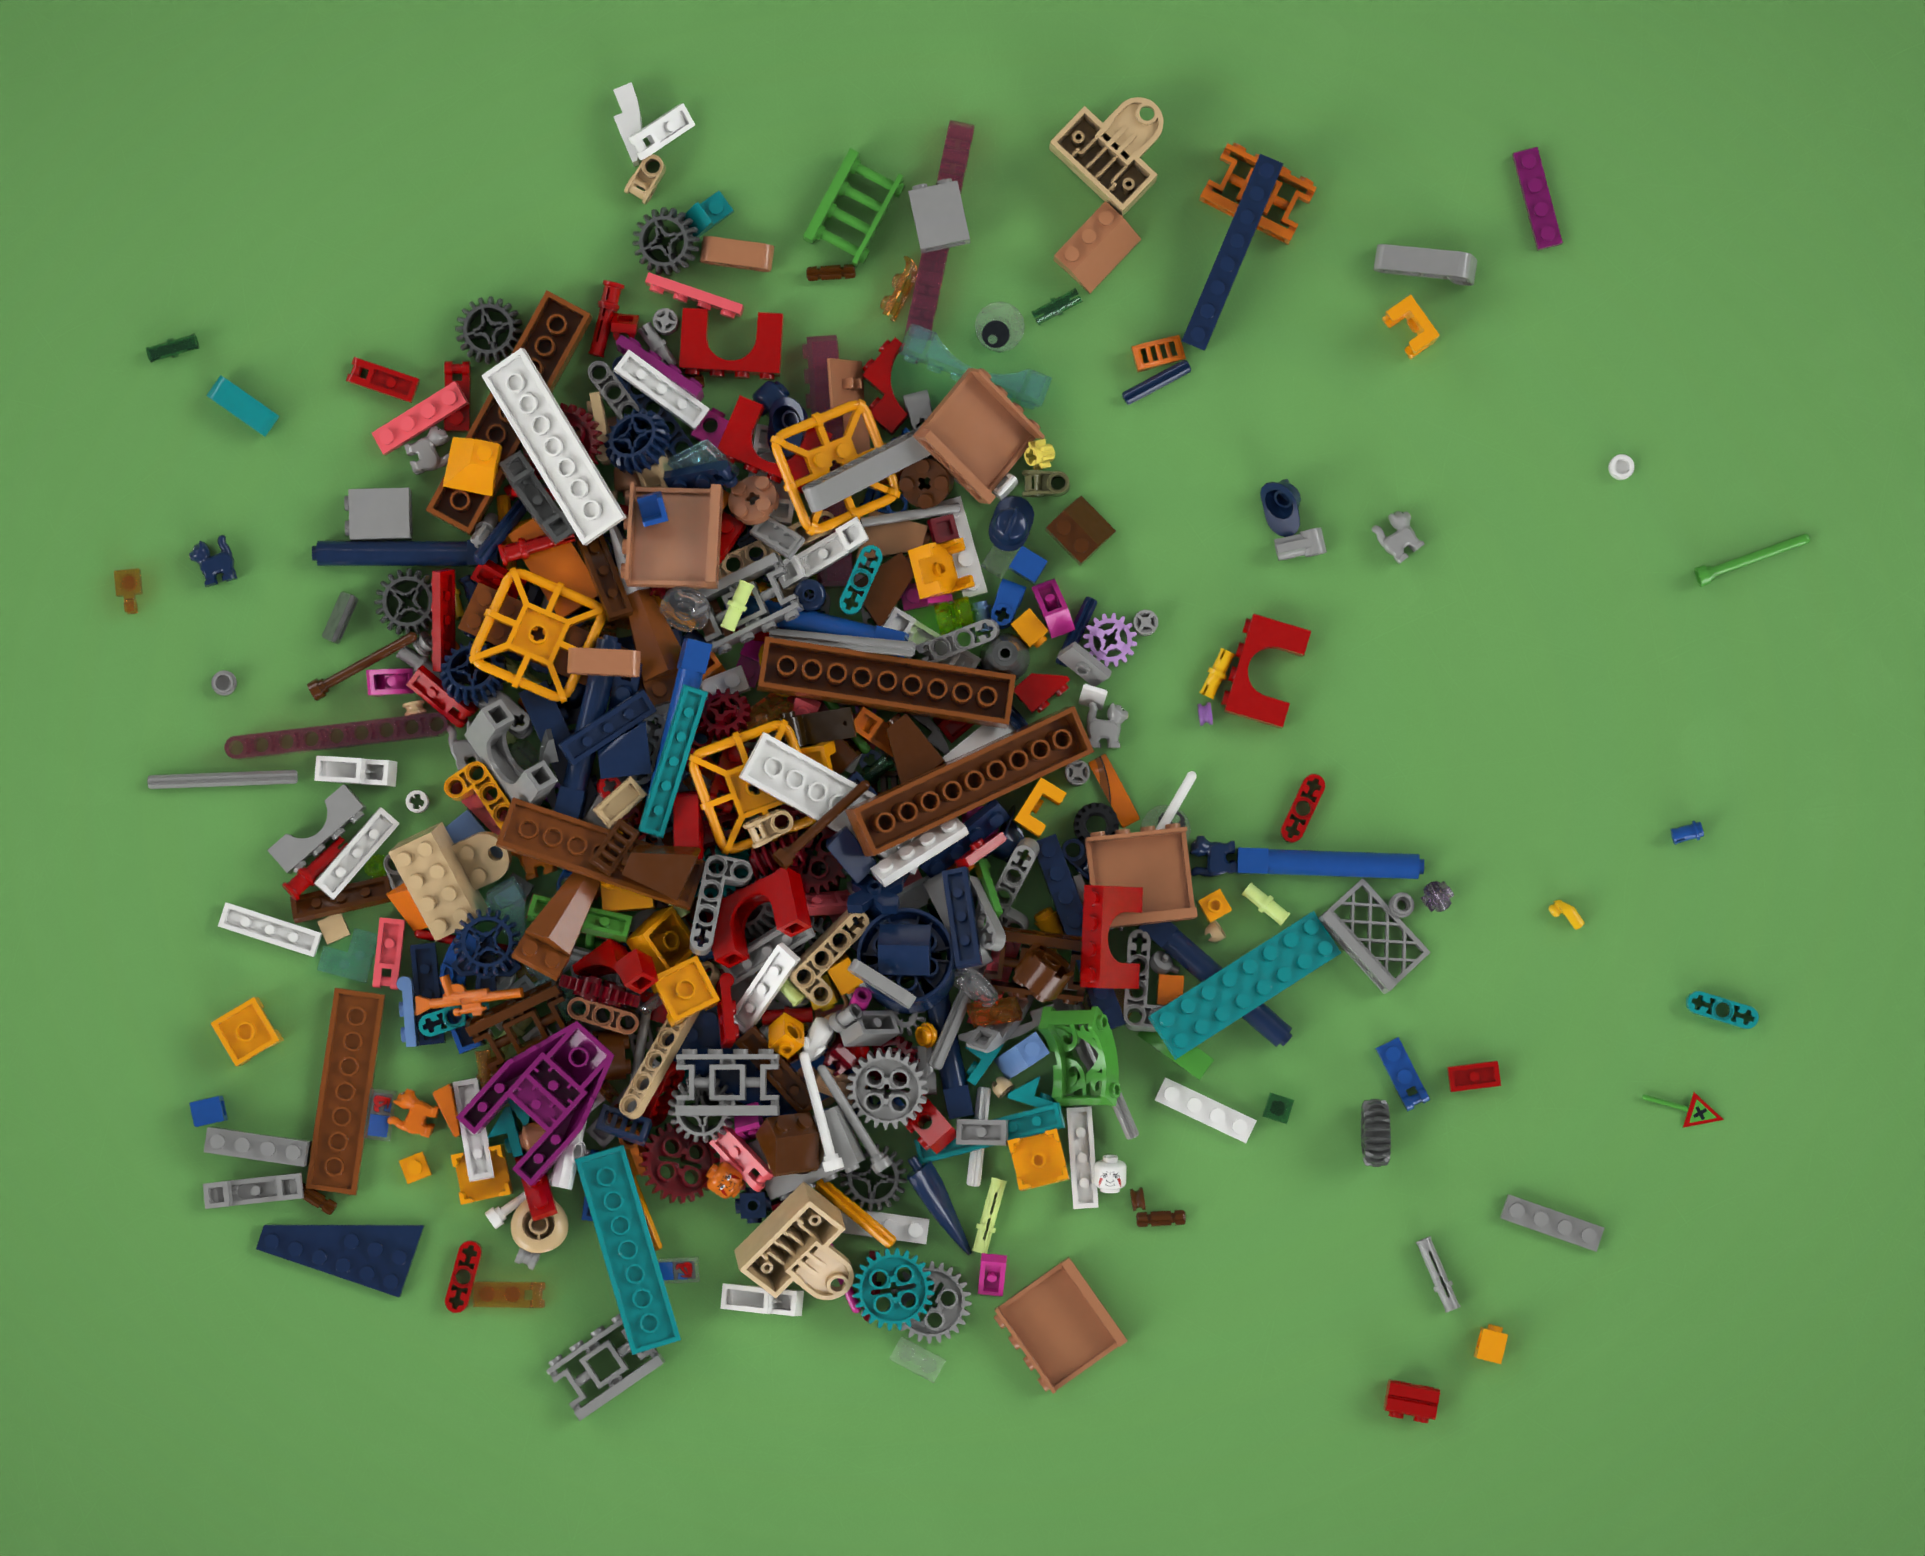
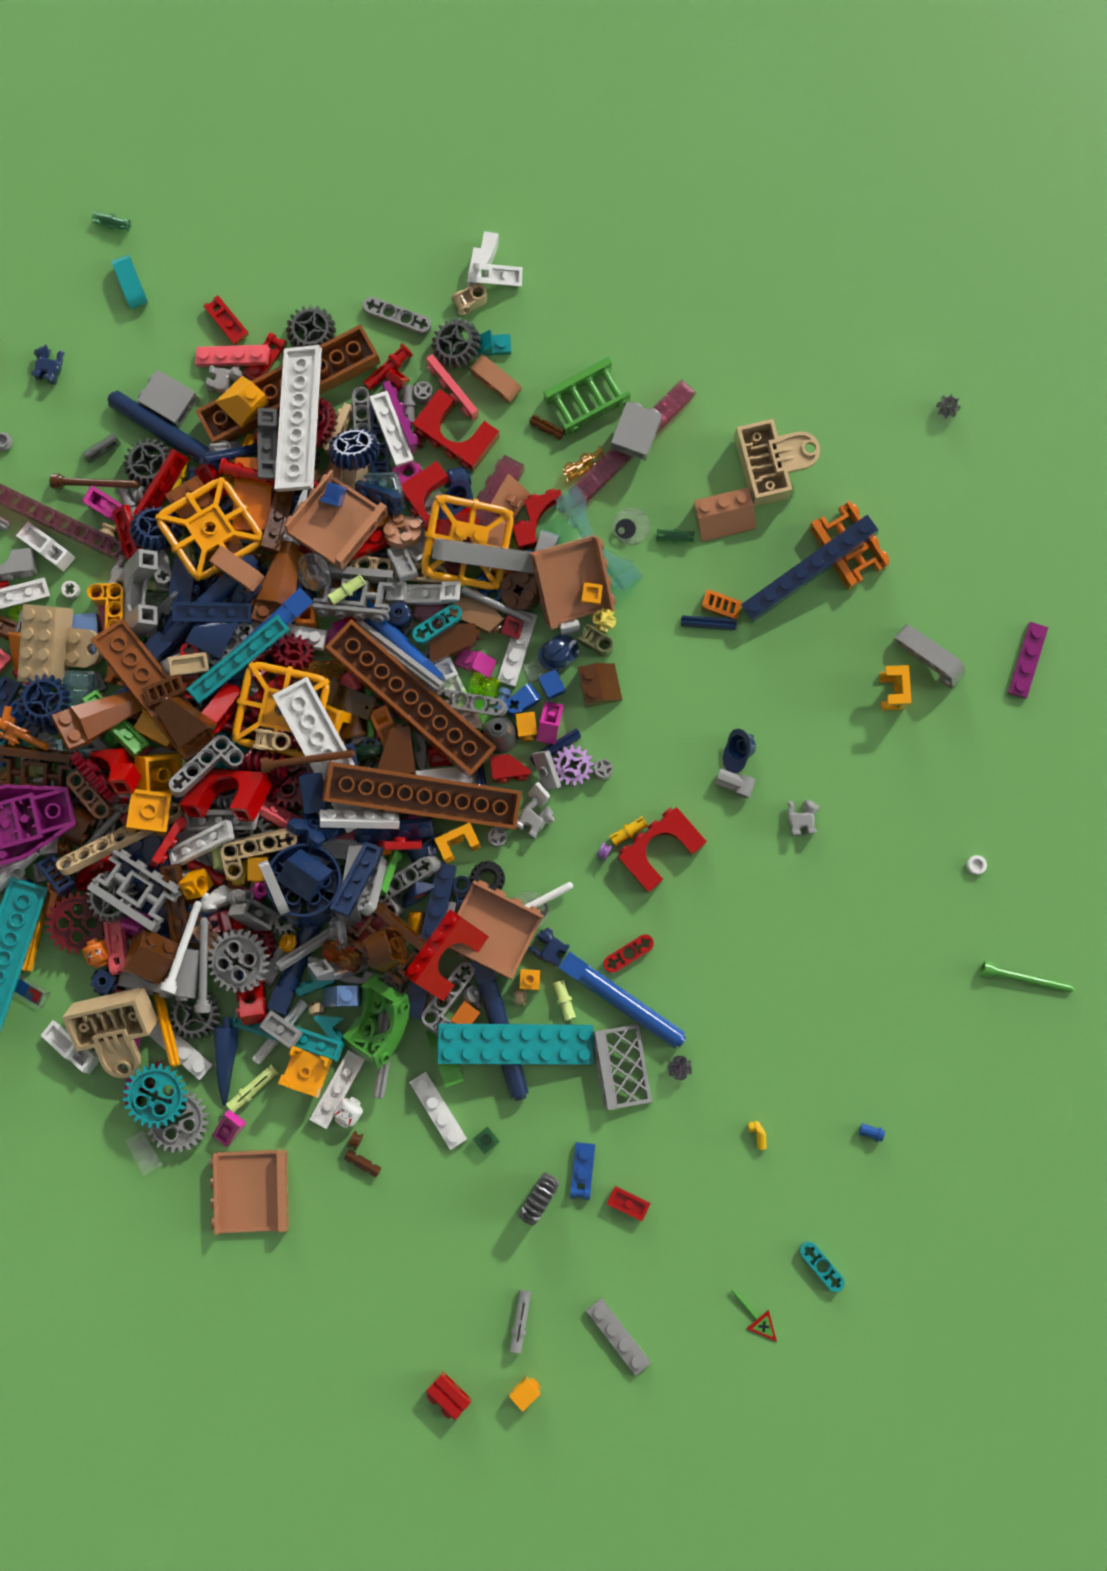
camera: 30 degrees right, 5 degrees down
(575, 250) = (395, 319): none -> light grey beam
(935, 569) = (490, 649): light orange panel -> none
(1008, 434) = (592, 593): none -> light orange plate
(1030, 891) = (416, 893): none -> dark blue slope
(1114, 790) = (514, 864): orange sticker -> none
(1406, 899) = (658, 1058): light grey plate -> none

